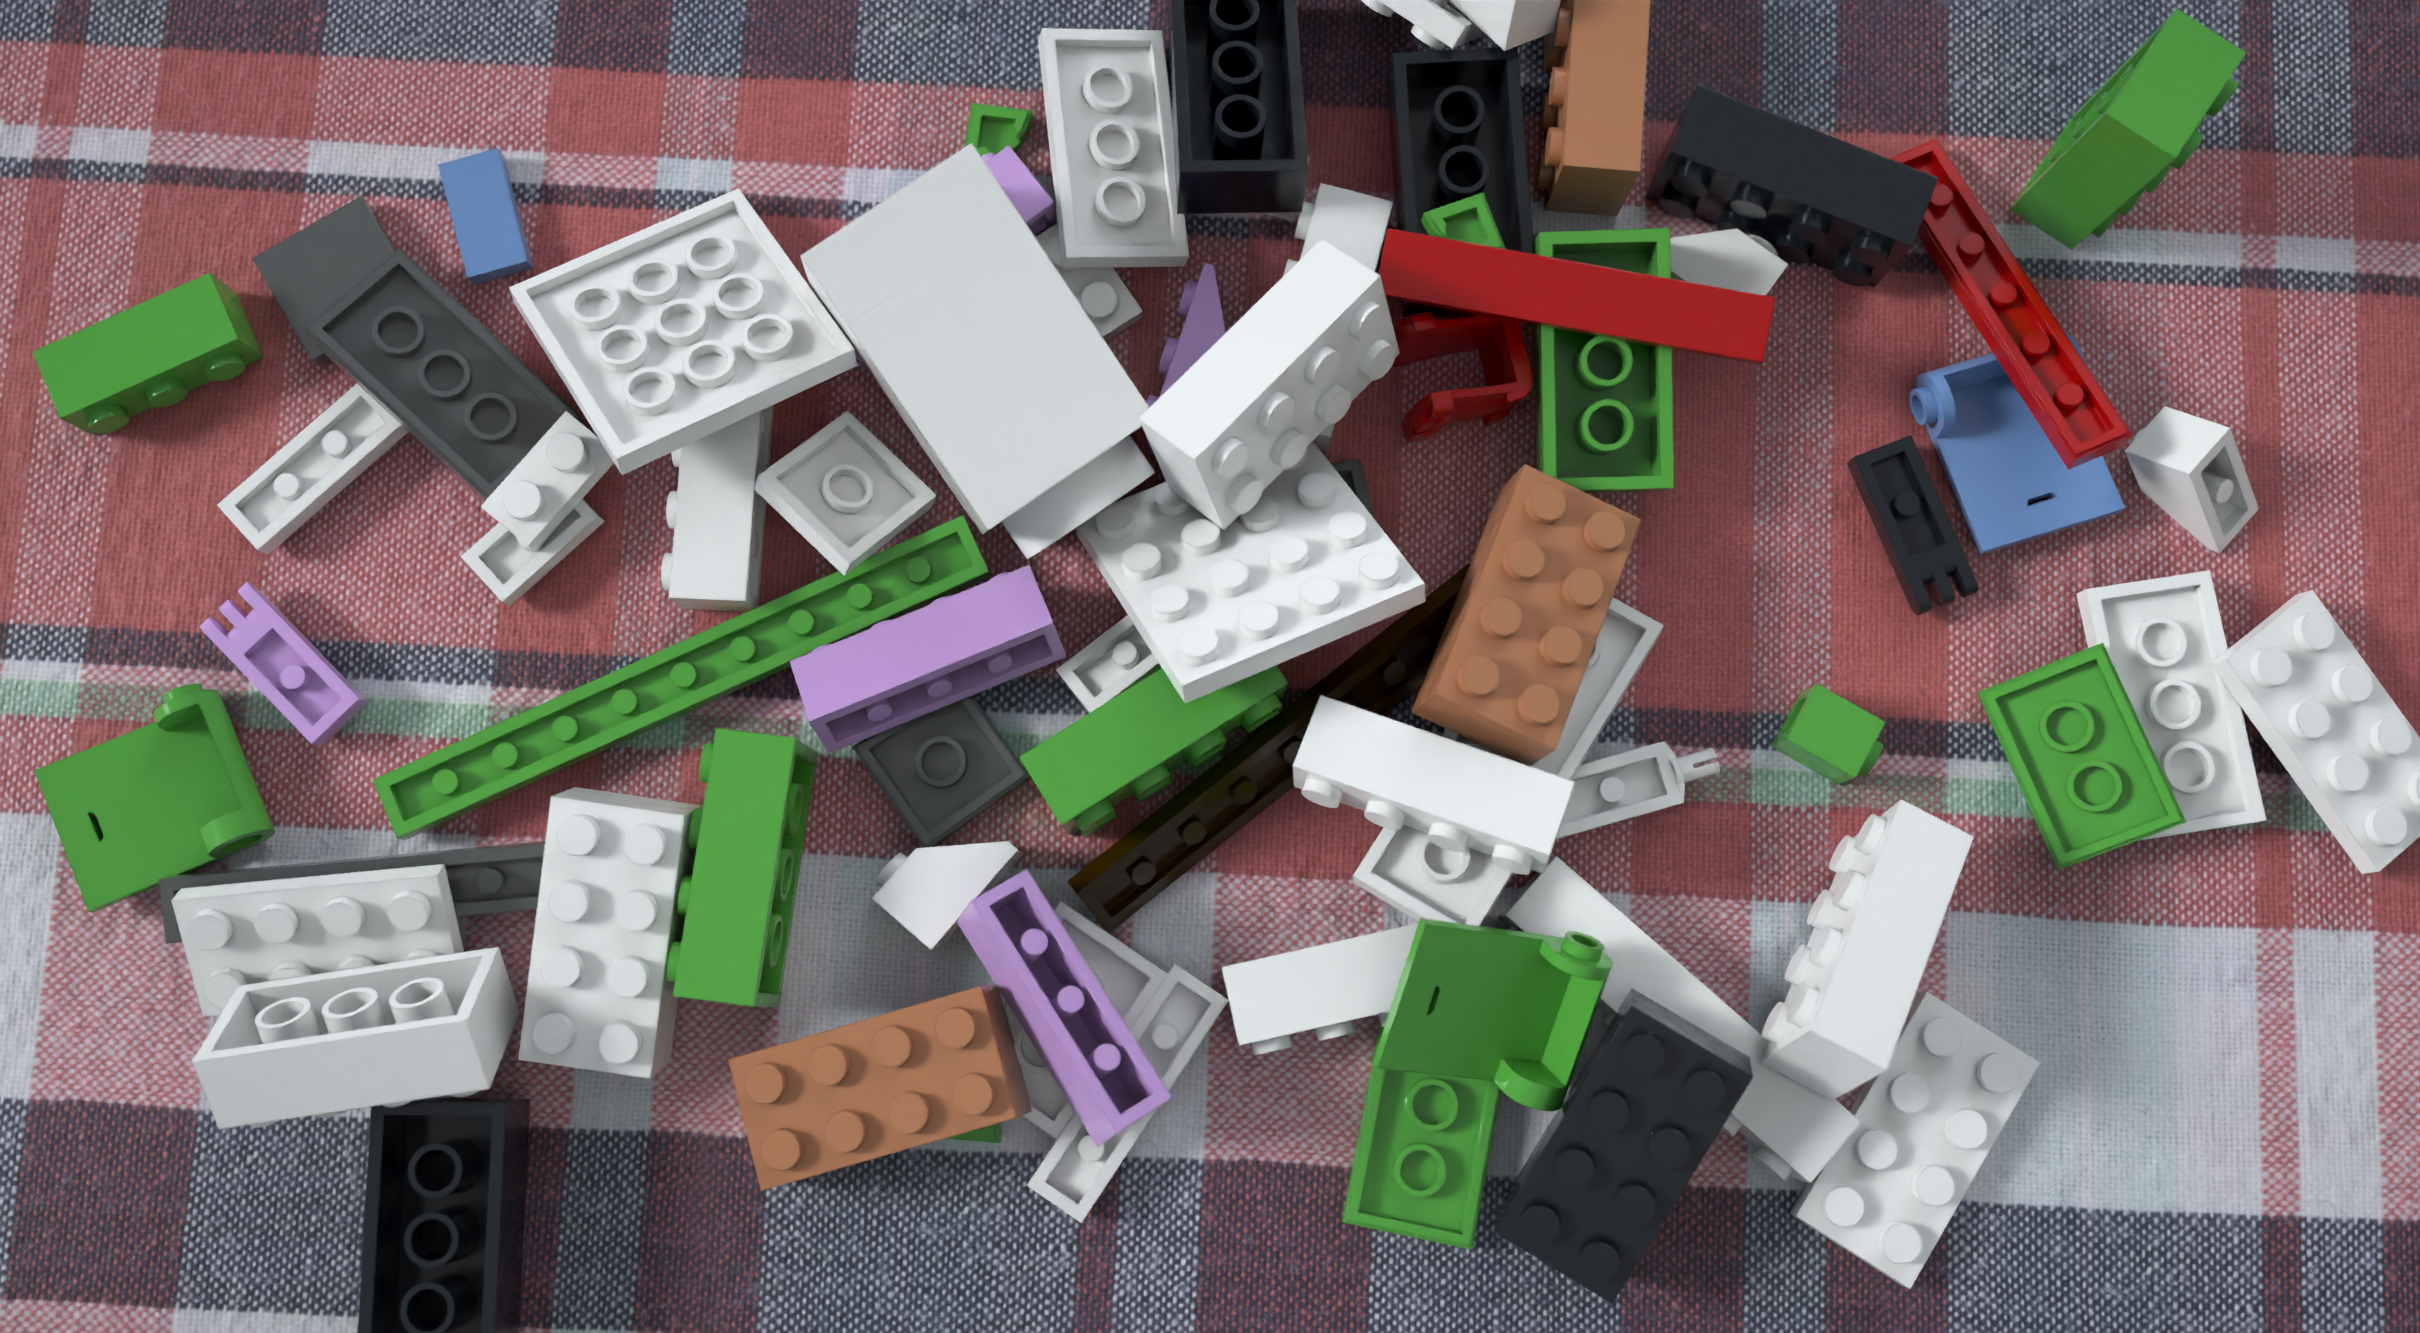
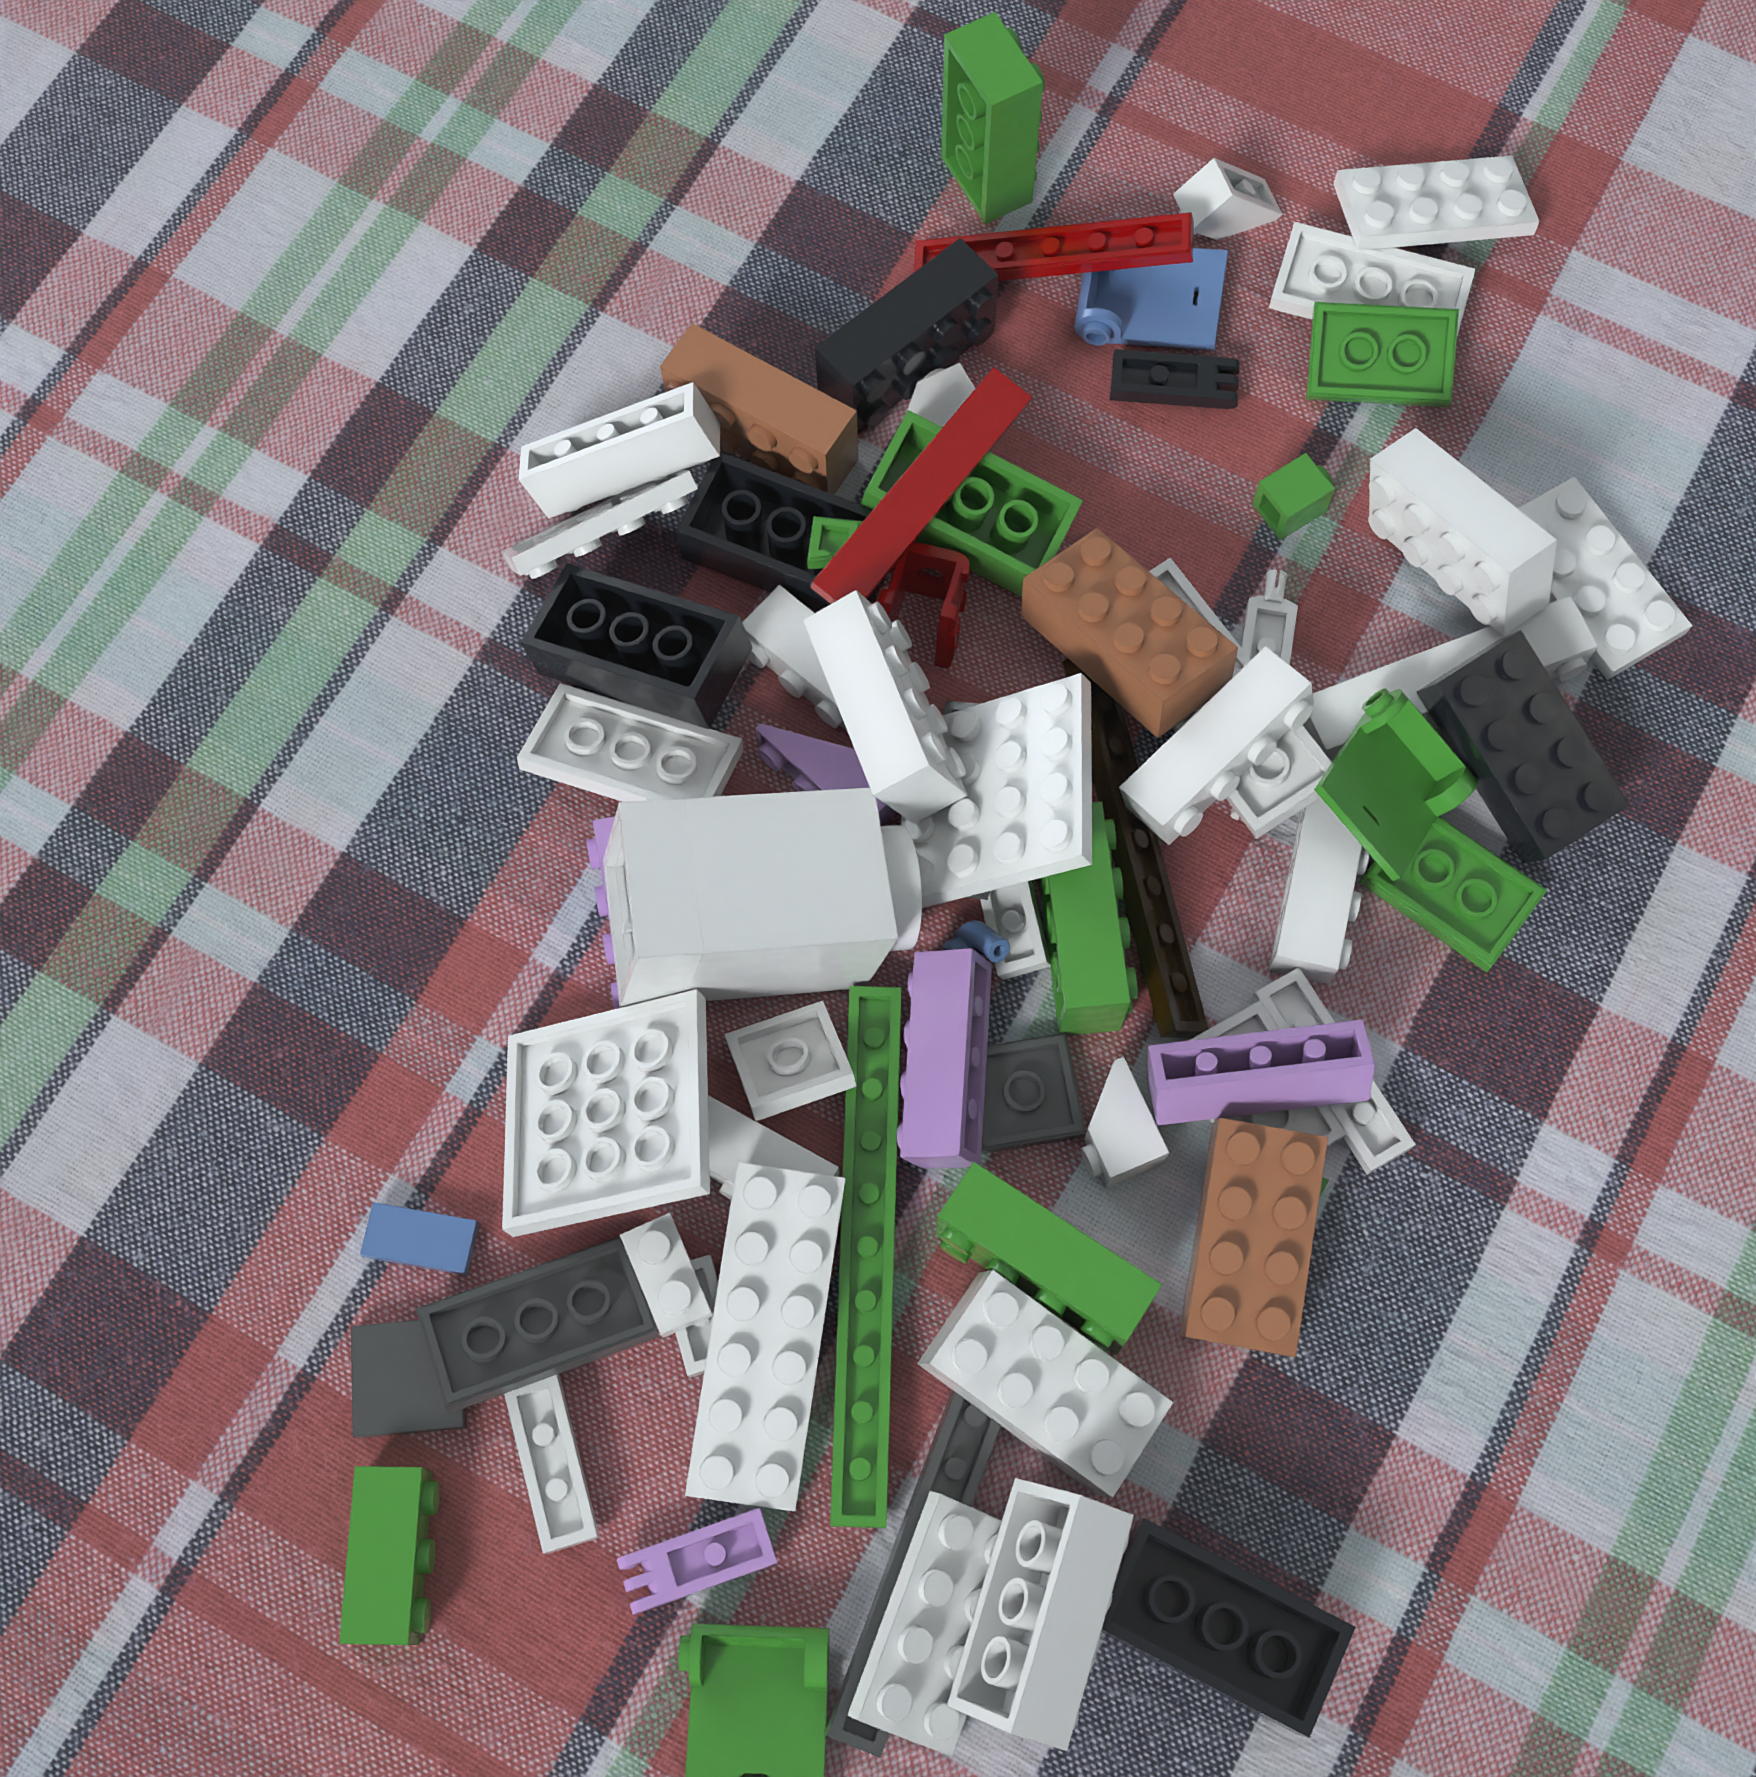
camera: 60 degrees left, 10 degrees down
(535, 613) = (765, 1337): none -> white plate
(997, 127) = (567, 837): bright green tile -> none
(1085, 626) = (981, 939): none -> medium blue arm

